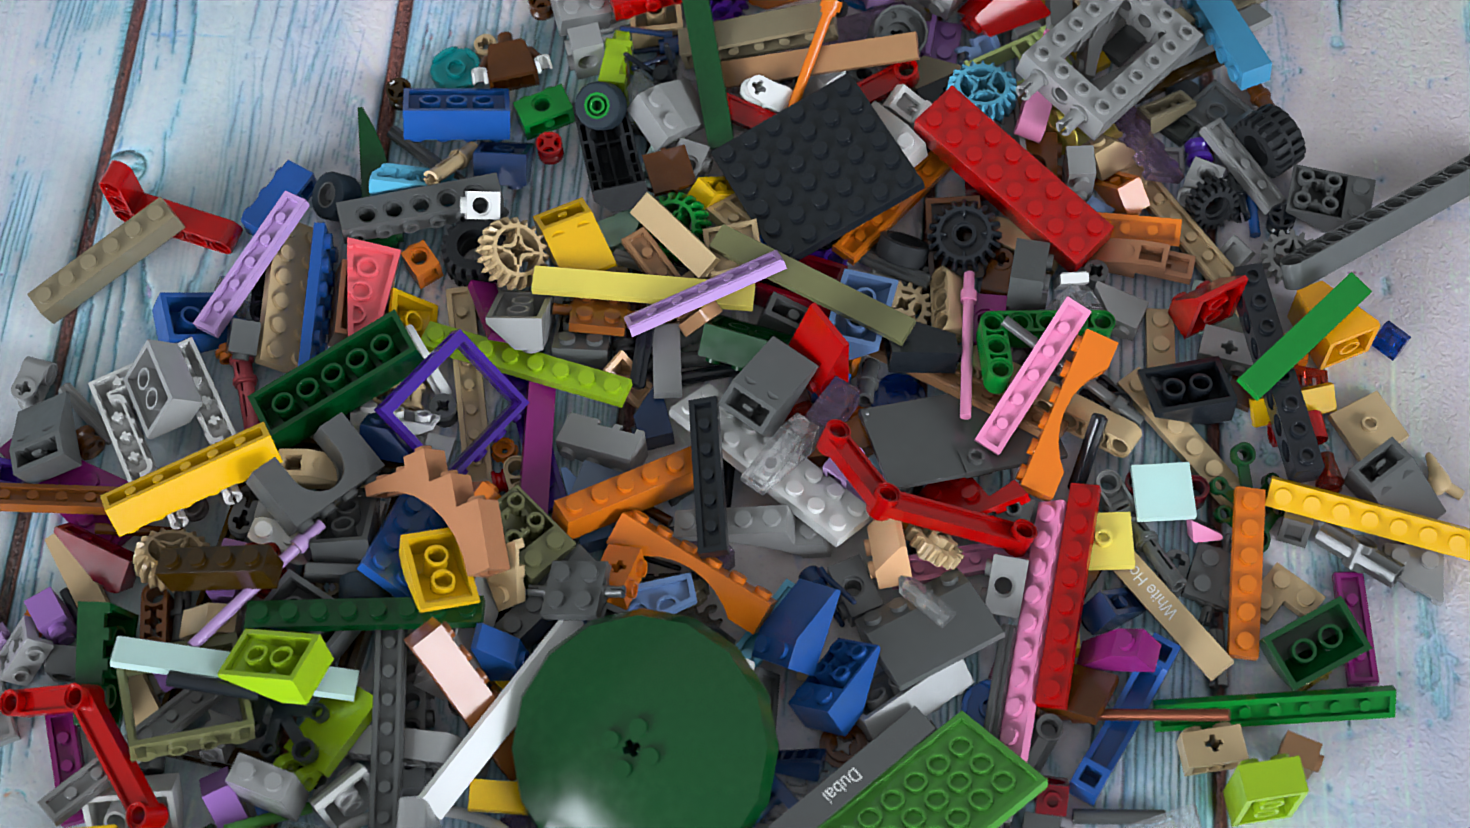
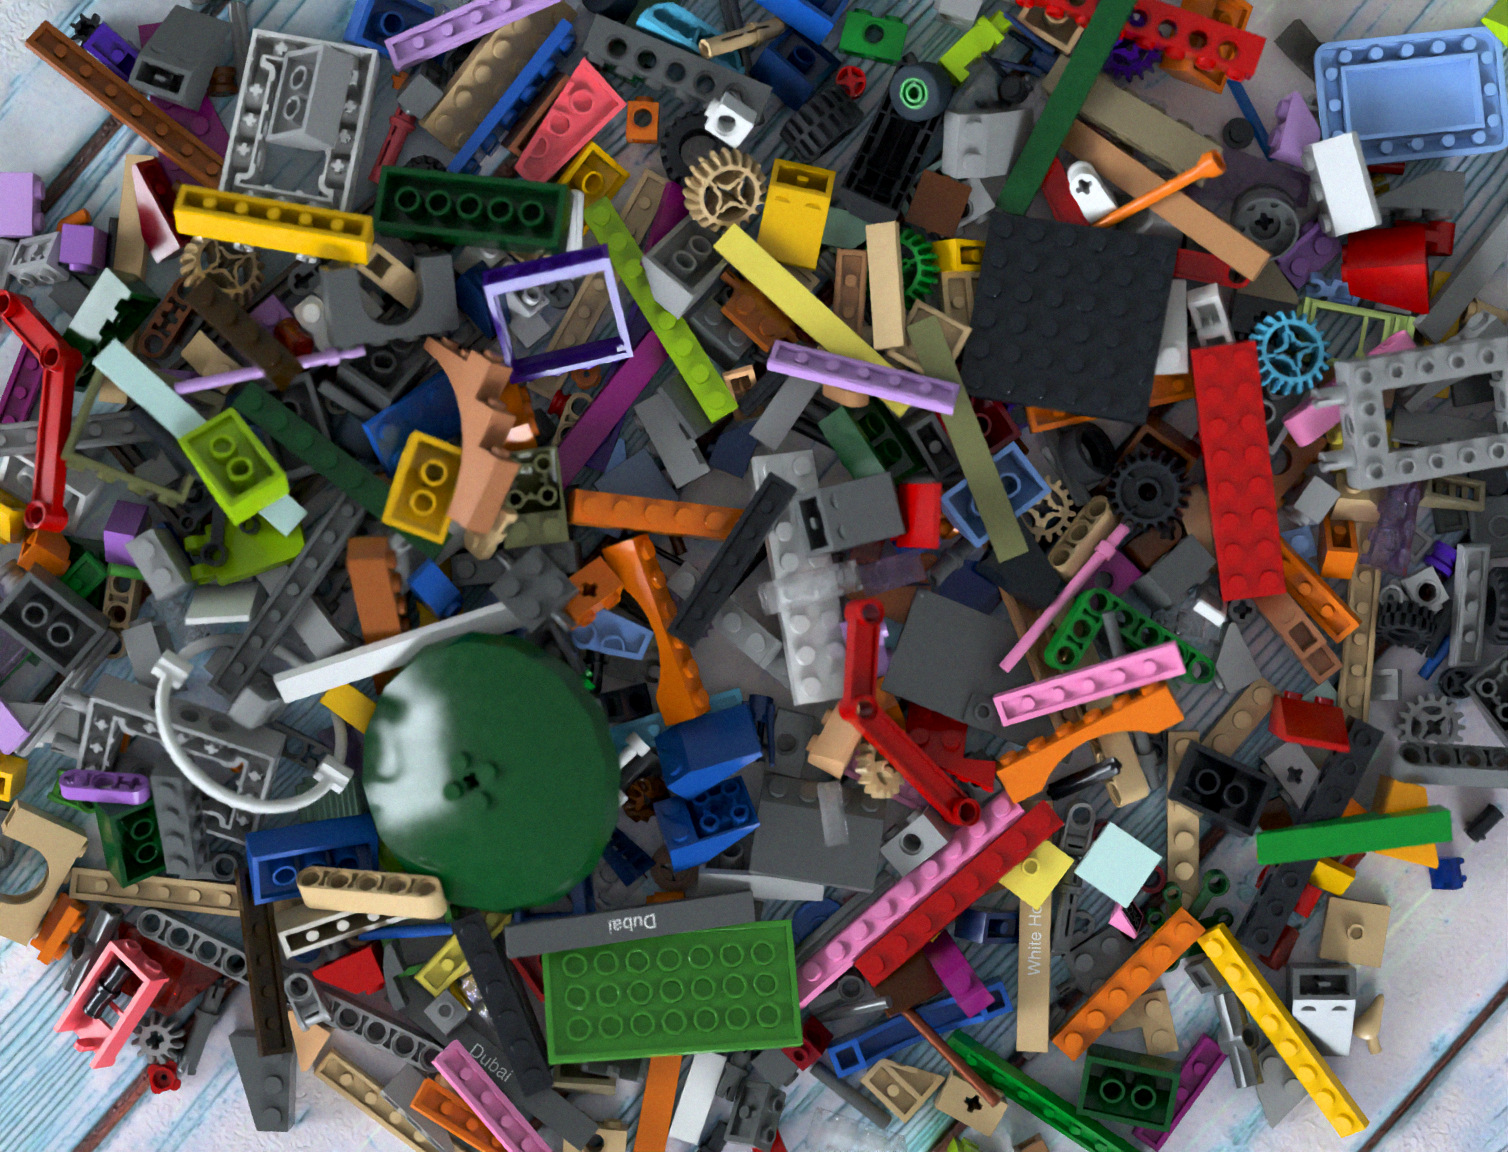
camera: 30 degrees right, 25 degrees up
(548, 174) = (821, 124): none -> black tyre
(597, 409) = (686, 407): none -> dark grey slope
(787, 721) = (635, 806): none -> reddish brown gear
(1065, 739) = (855, 1009): none -> dark grey bar
(1149, 780) = (900, 1086): none -> tan wing
(1384, 293) = (1483, 823): none -> black pin

